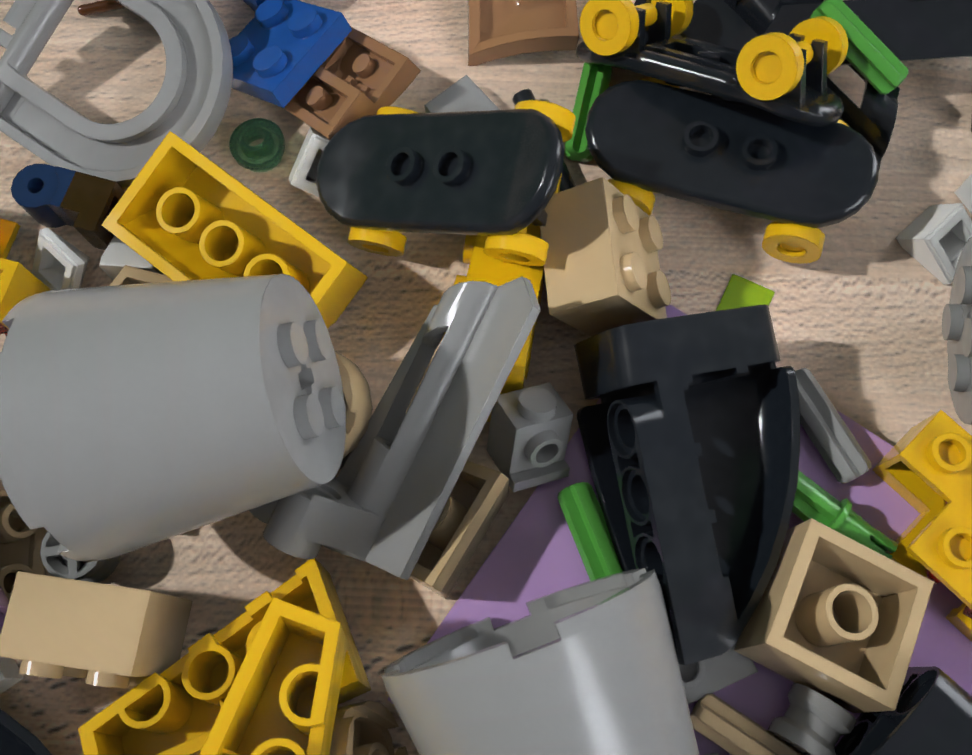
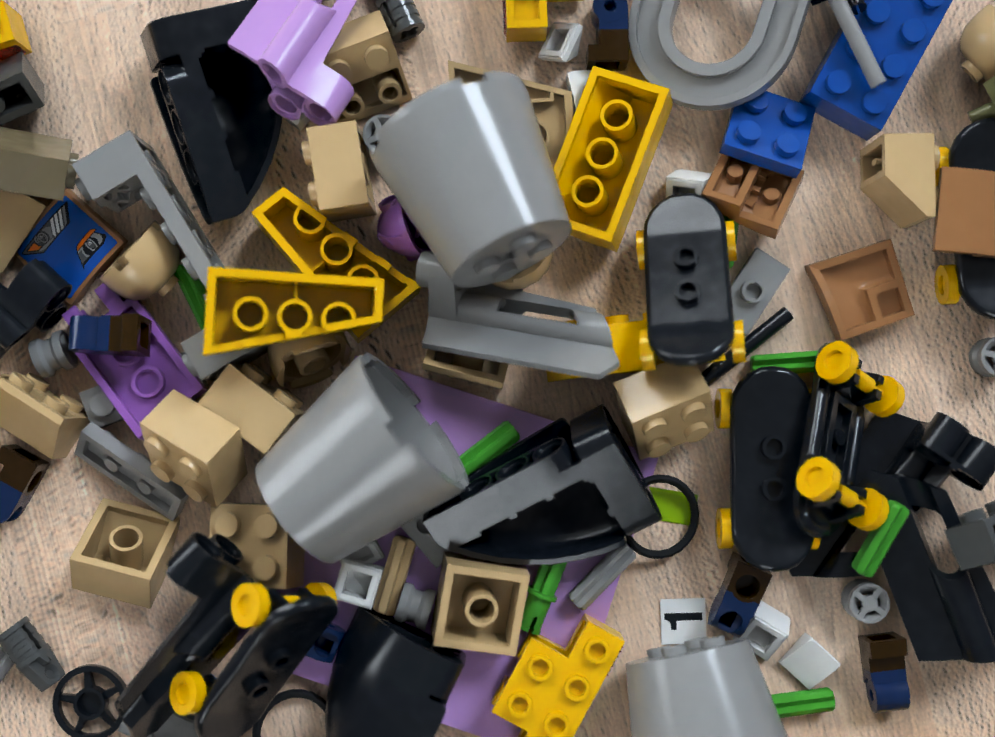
camera: 65 degrees right, 15 degrees up
(221, 559) = (397, 230): none -> medium lavender helmet
(262, 156) = (688, 151): clear green plate -> none
(530, 436) = (535, 394): light grey brick -> none
(760, 281) = (655, 554): none -> black tyre
(891, 252) = (738, 596): none -> leg
(907, 342) = (682, 620): none -> white sticker
(935, 88) = (873, 605): none -> light grey wheel

